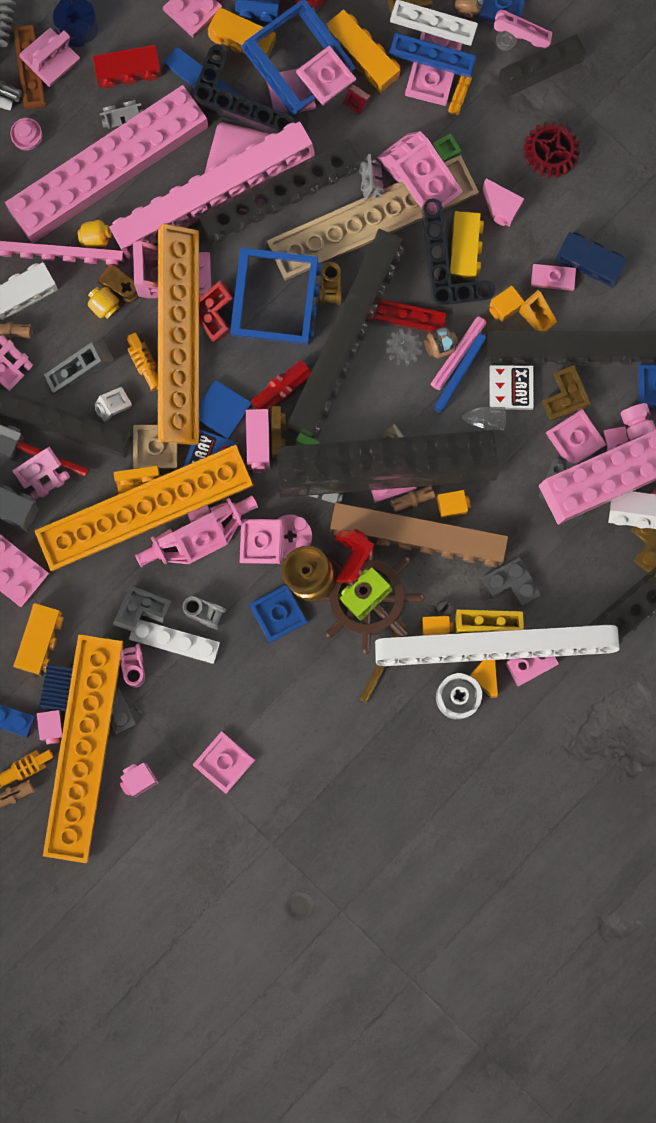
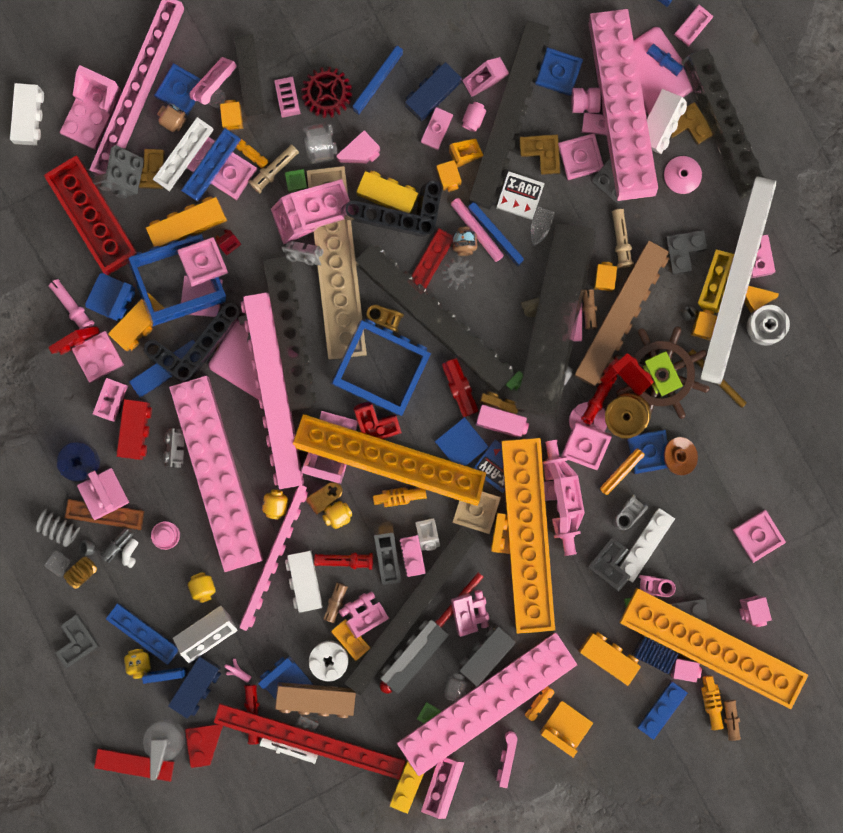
camera: 70 degrees left, 5 degrees up
(60, 337) = (354, 560): none -> red pin
(83, 393) = (412, 556): none -> bright pink brick
(150, 31) = (110, 400): none -> bright pink brick
(246, 589) = (622, 471): none -> light orange axle
(288, 655) = (686, 454): none -> dark orange dish
(309, 535) = (596, 402): none -> red pin
(442, 116) = (268, 177): none -> tan pin
(491, 514) = (622, 248): none -> tan pin
(492, 60) = (231, 115): none -> light orange brick
(493, 156) = (319, 143): none -> clear brick
(516, 112) = (292, 110): none -> bright pink slope
(579, 310) = (473, 116): none -> bright pink brick
(583, 198) = (377, 80): none -> blue tile
(586, 562) = (676, 181): none -> bright pink dish
(627, 309) = (485, 76): none -> bright pink slope

